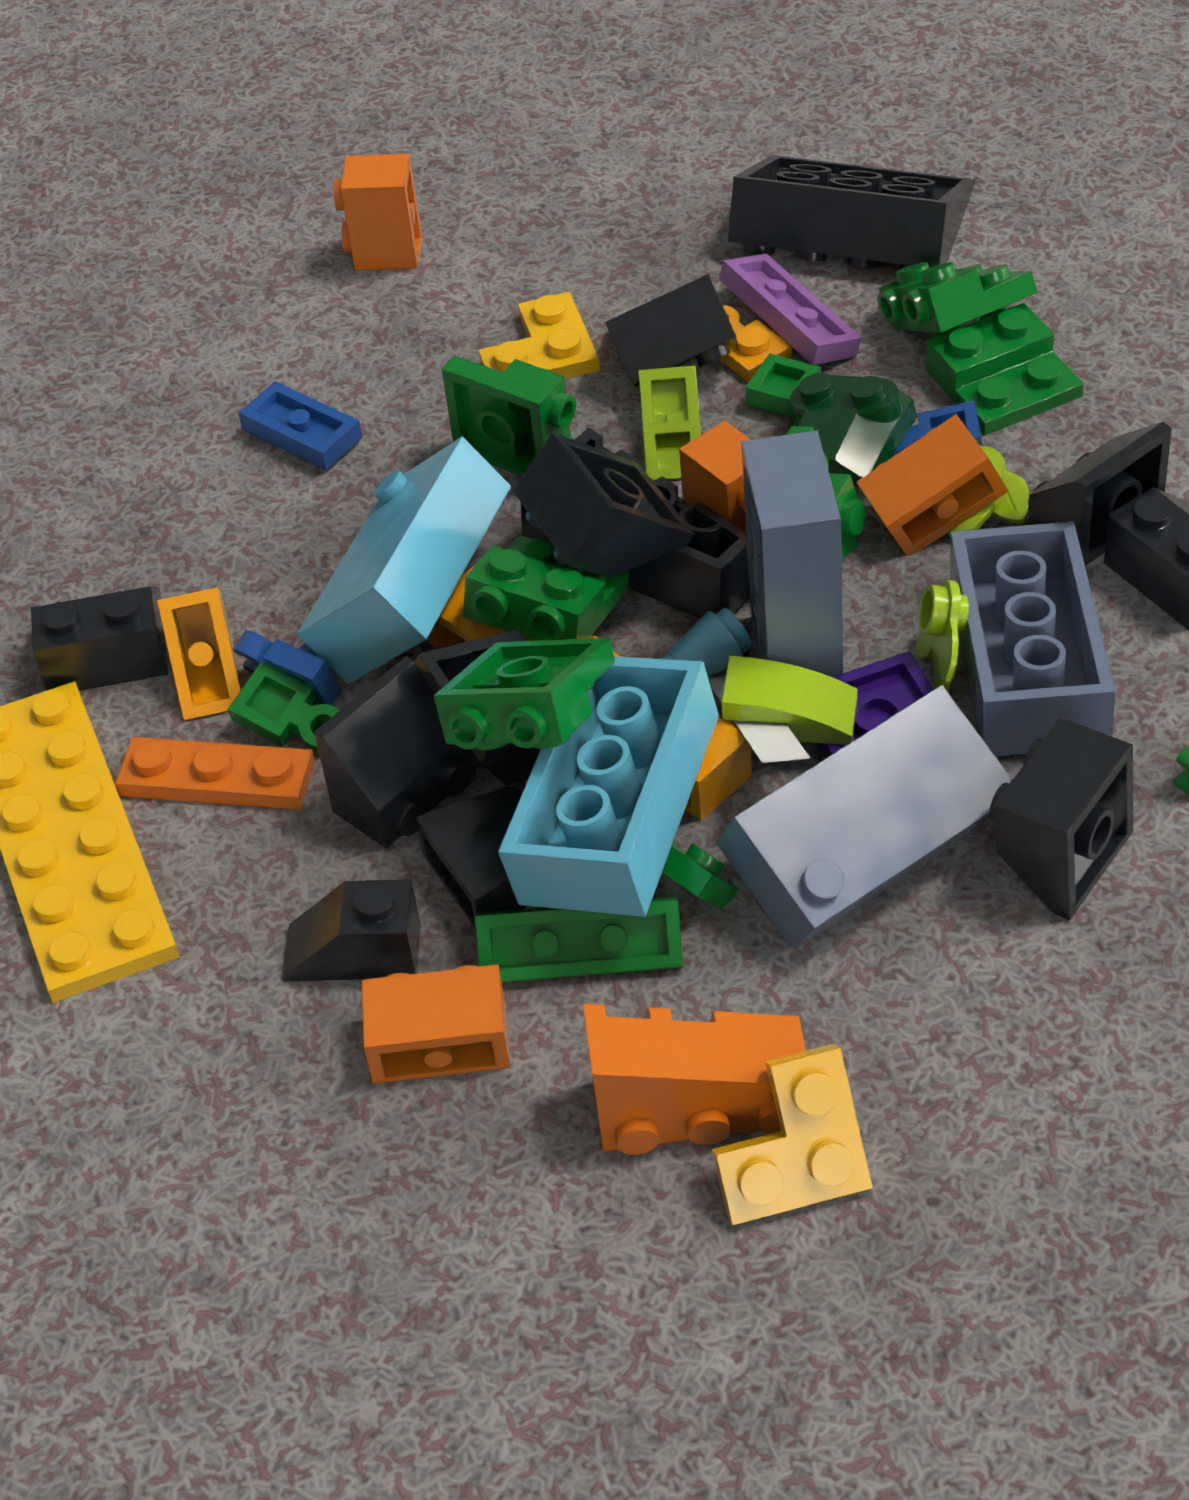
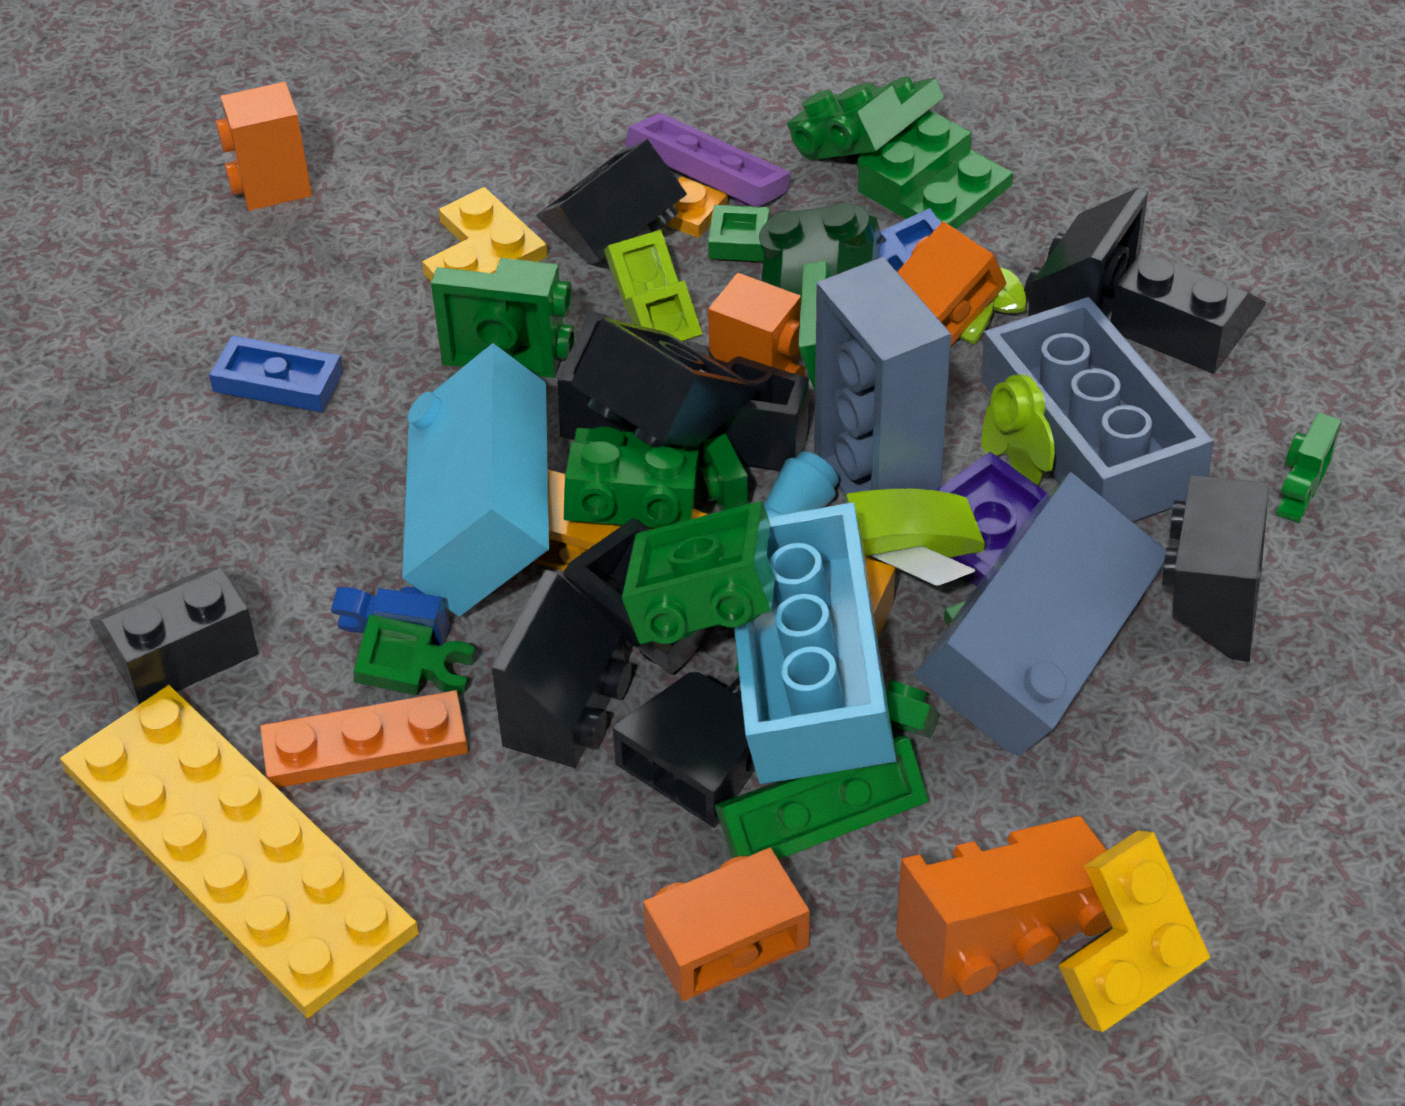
camera: 25 degrees left, 0 degrees up
(200, 652) = (294, 621): light orange slope -> none
(356, 933) = (598, 859): black slope -> none
(643, 615) = (722, 474): none -> green plate
(848, 213) = (719, 60): black slope -> none

